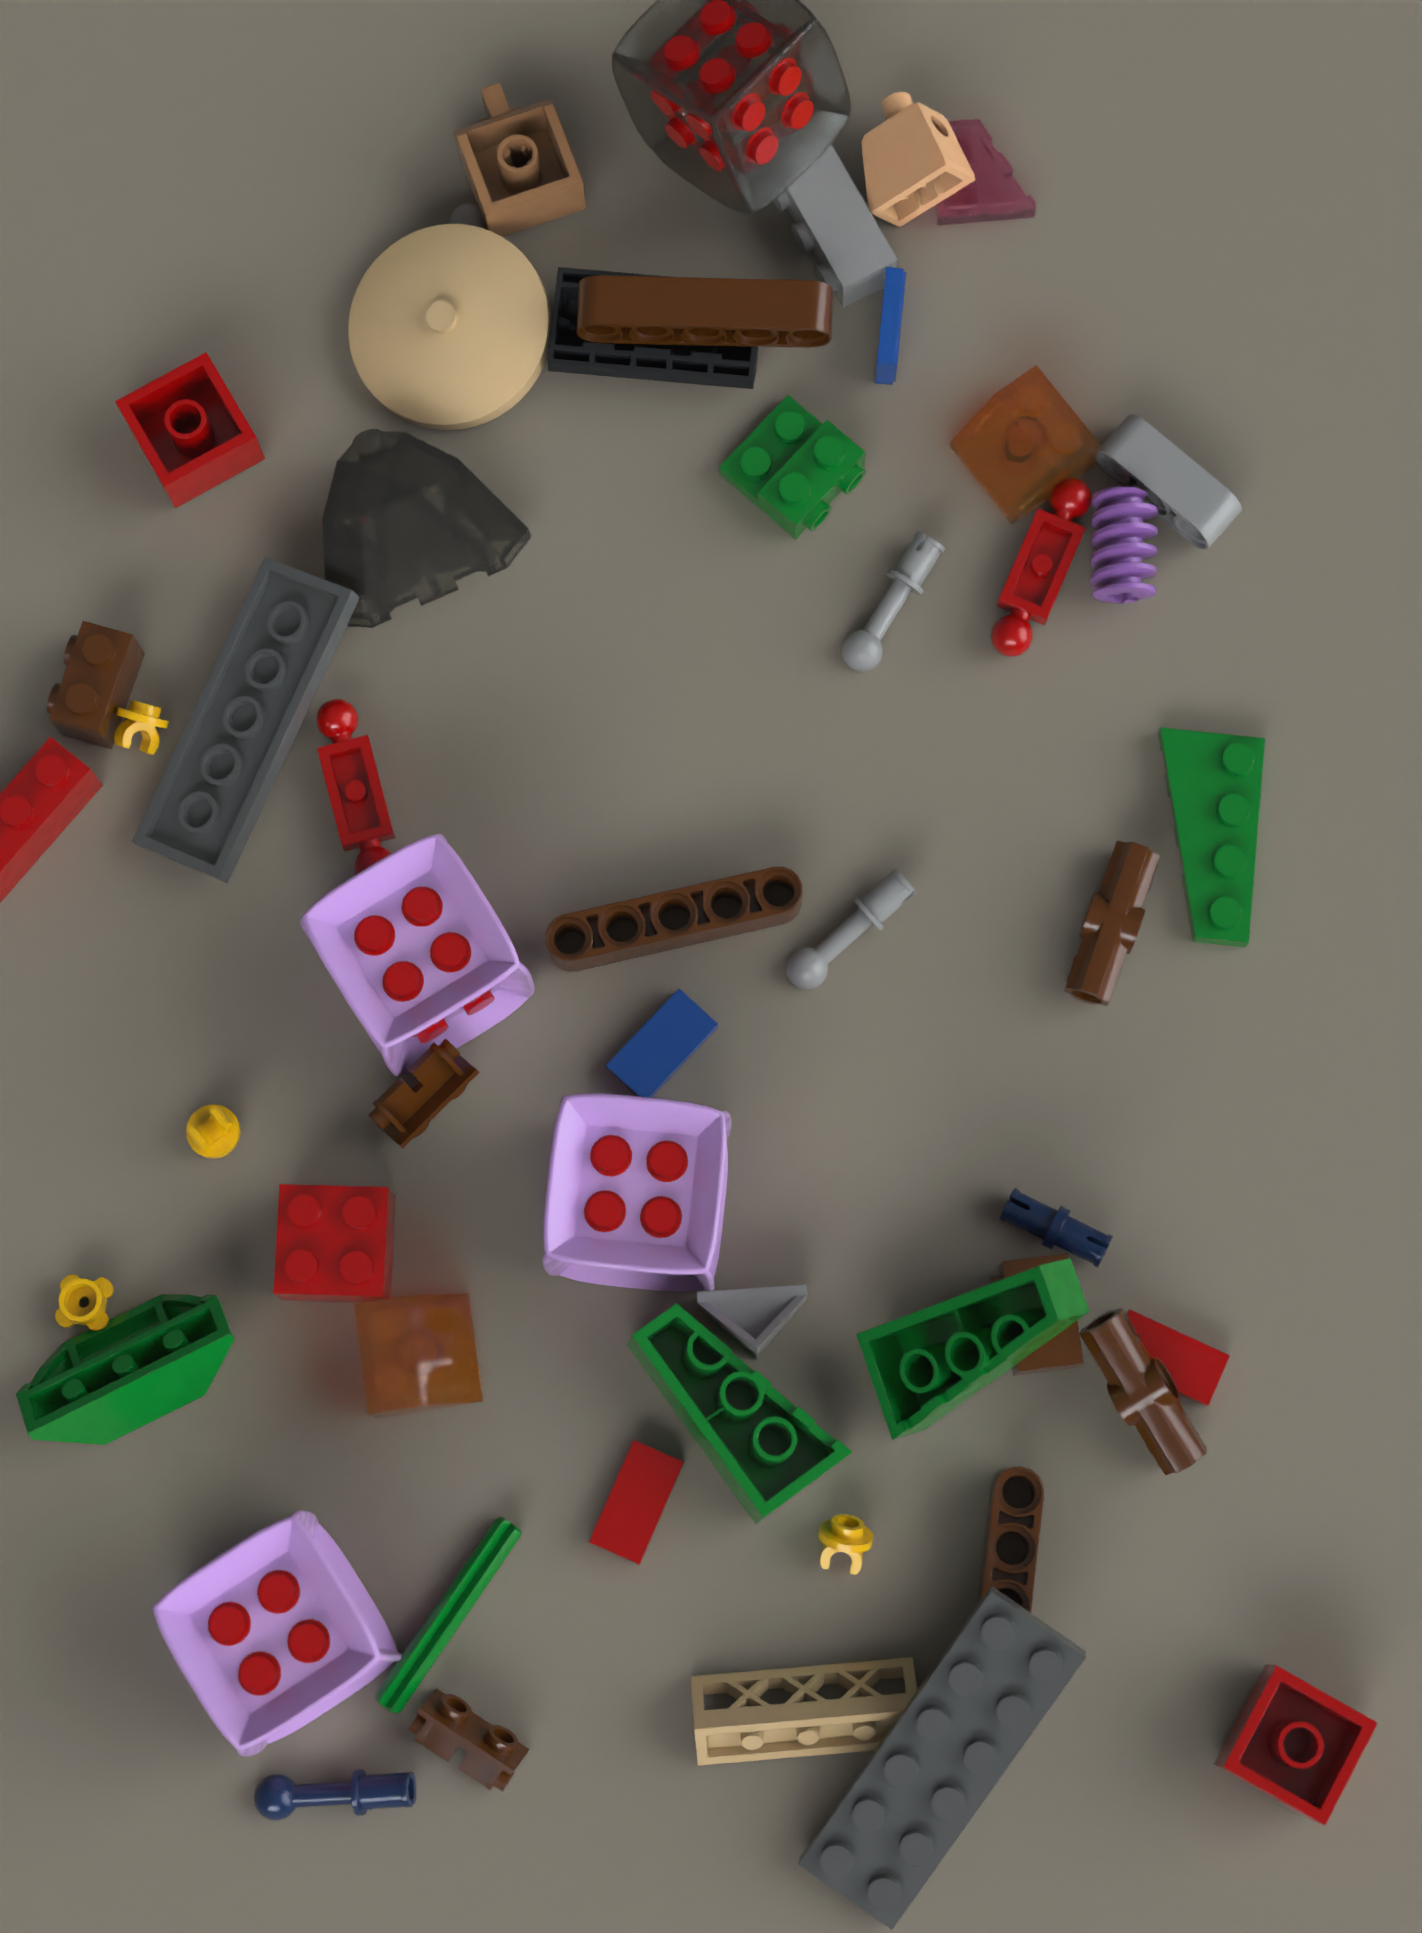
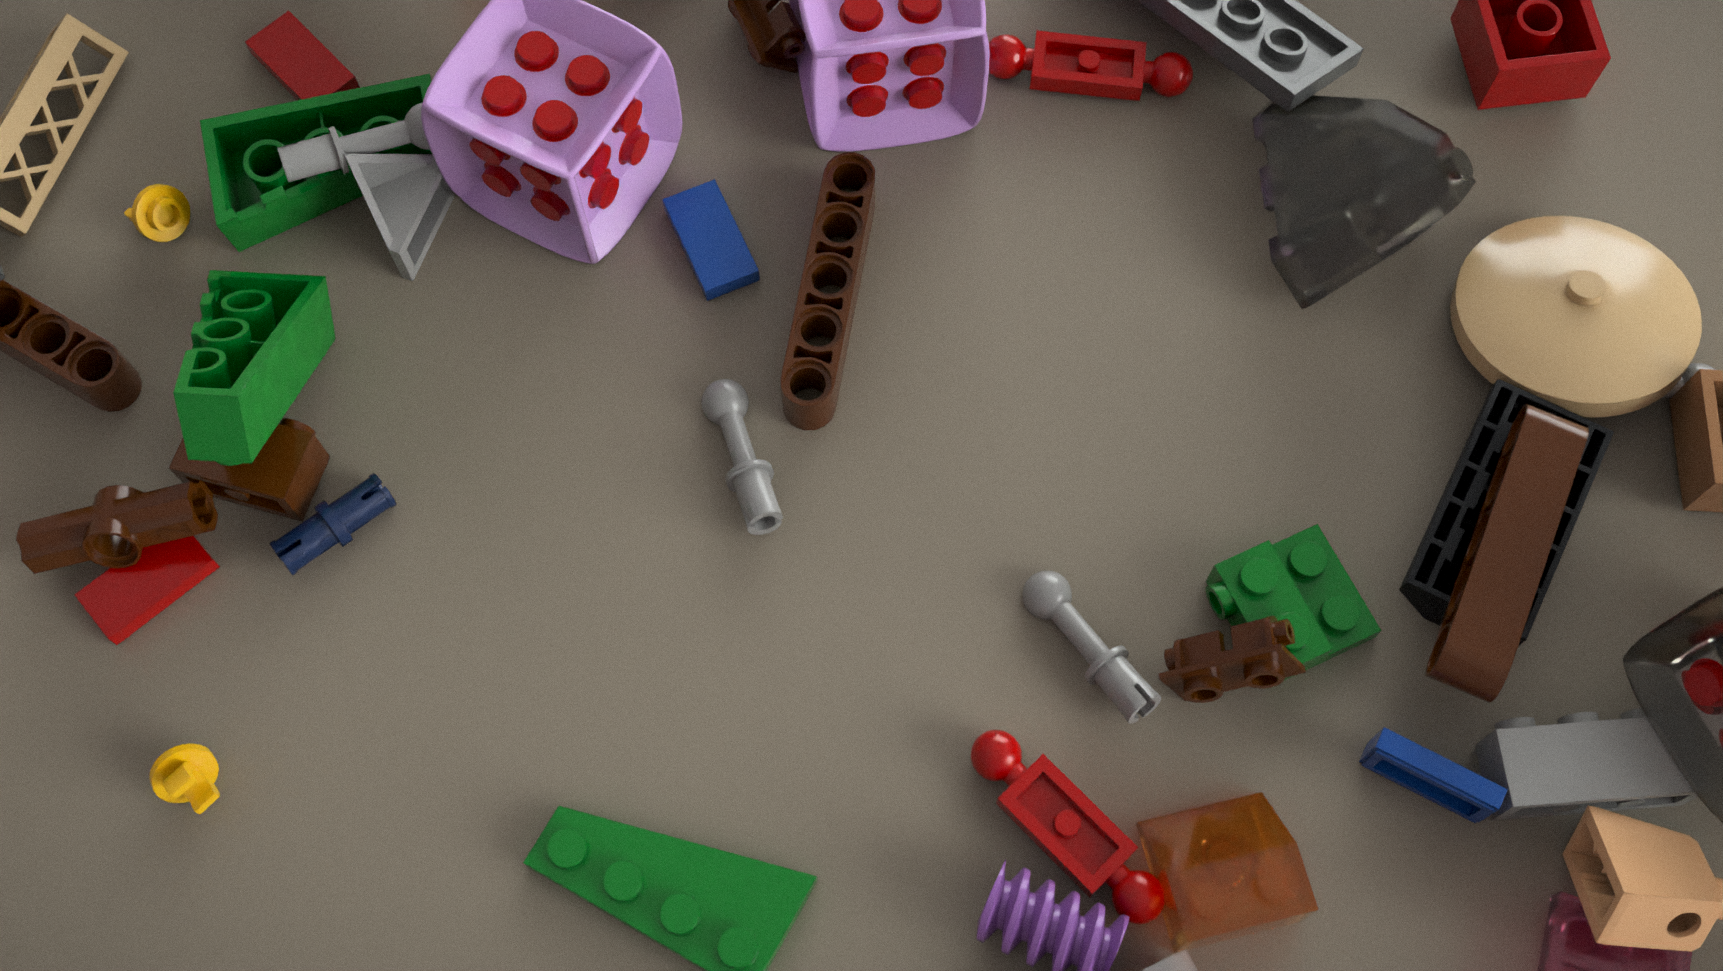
camera: 110 degrees right, 10 degrees down
(687, 1310) = (327, 151): none -> light grey pin
(860, 468) = (1204, 669): none -> reddish brown hinge
(1112, 923) = (618, 720): reddish brown piece -> none
(1305, 1231) = (186, 775): none -> yellow plate

